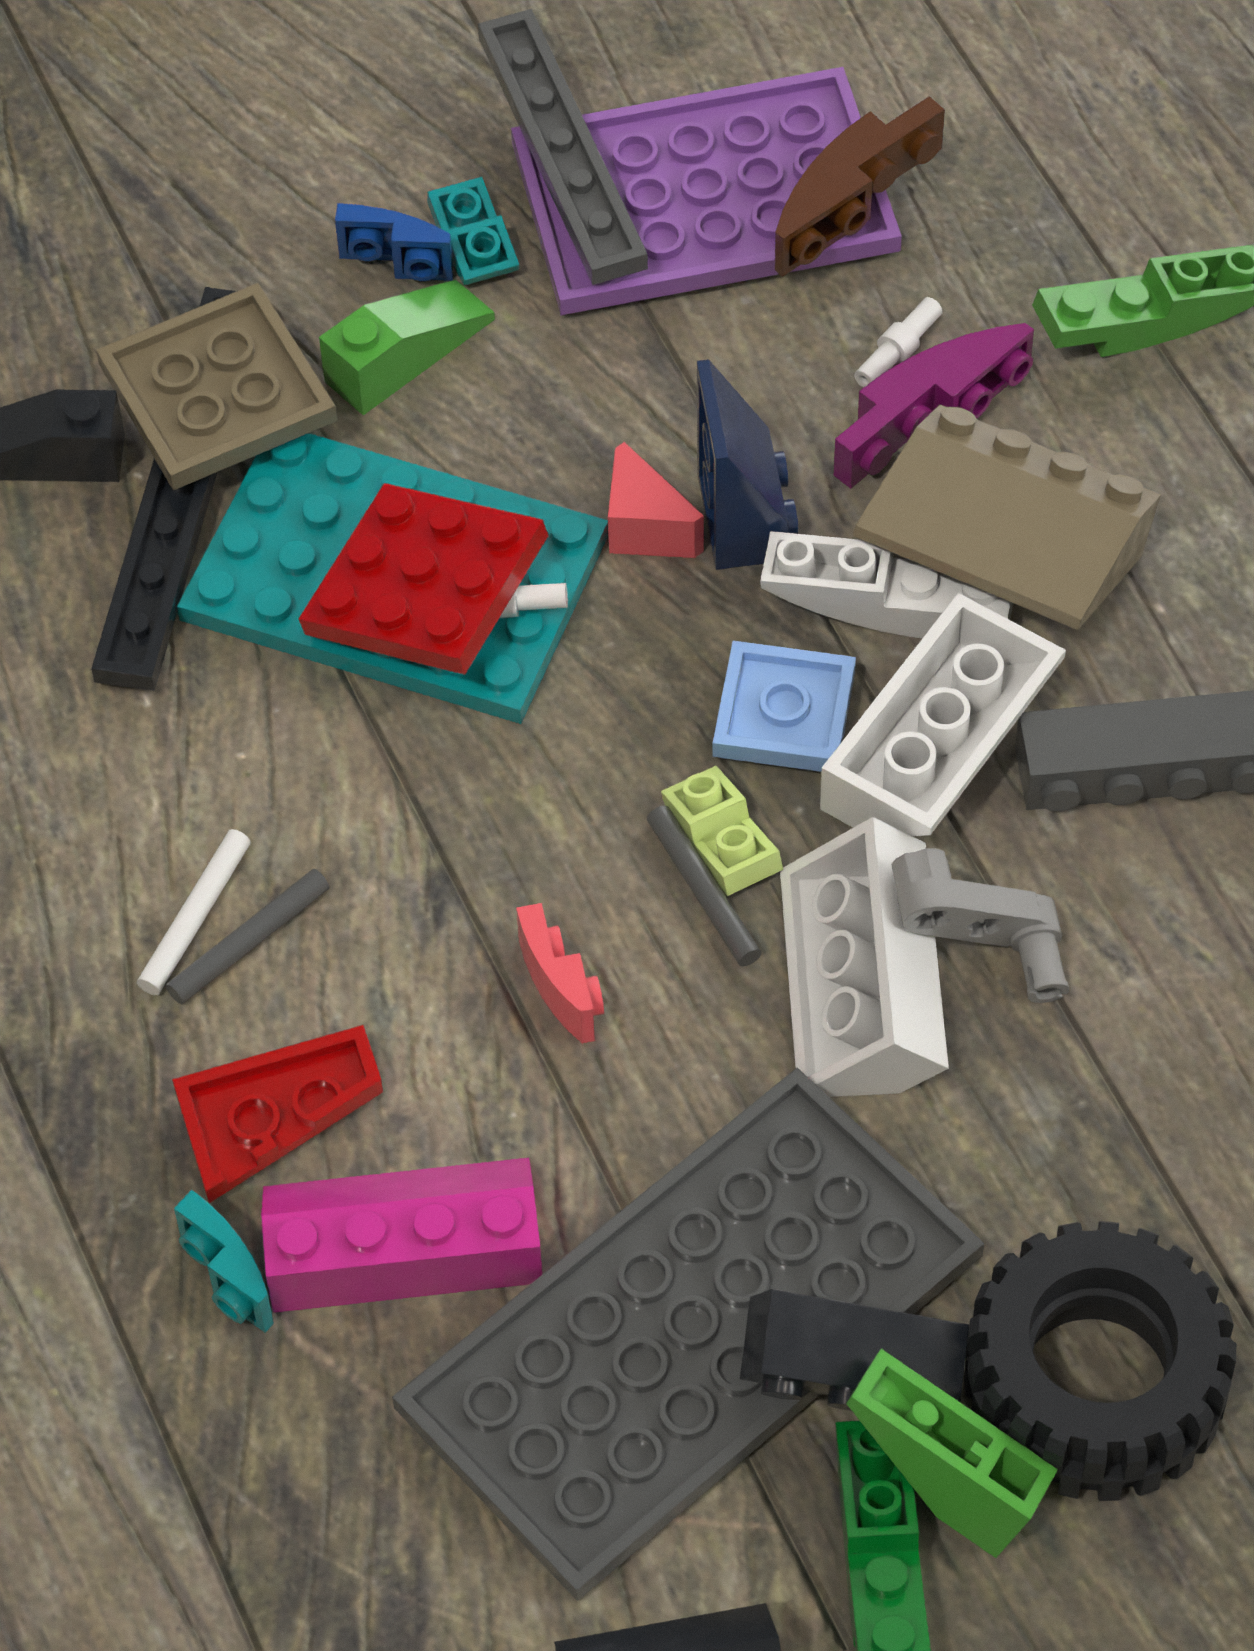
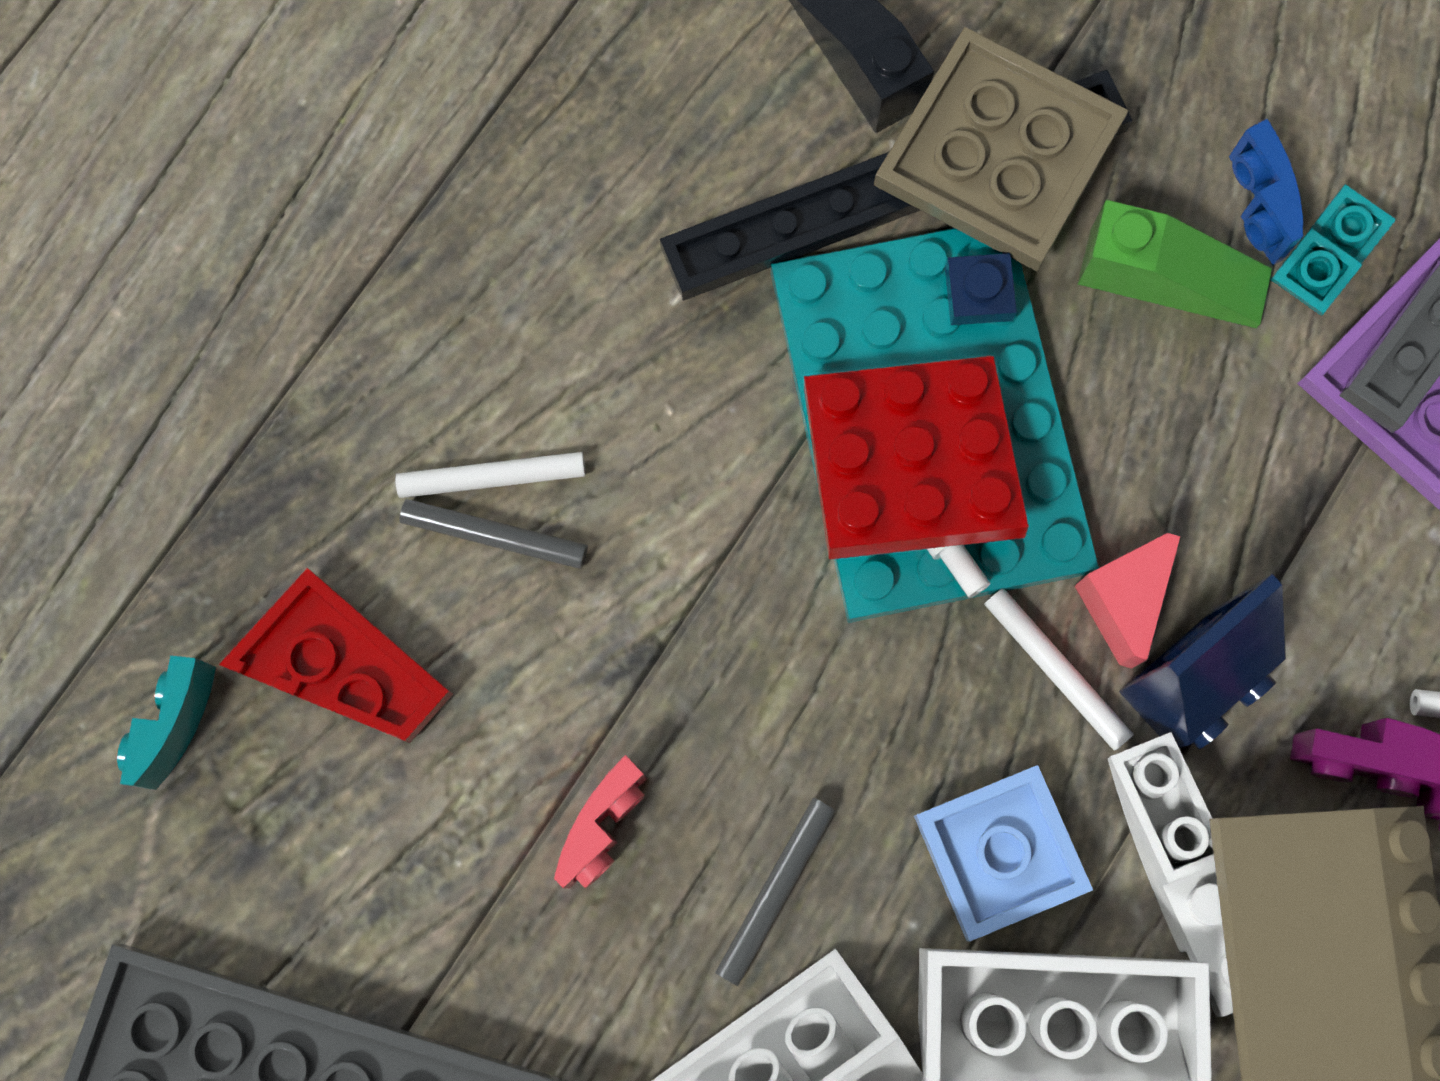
camera: 60 degrees right, 20 degrees up
(320, 466) = (980, 289): none -> dark blue plate
(400, 1235) = (279, 846): dark pink slope -> none
(667, 595) = (1059, 669): none -> white bar
(721, 830) = (840, 873): yellowish green slope -> none

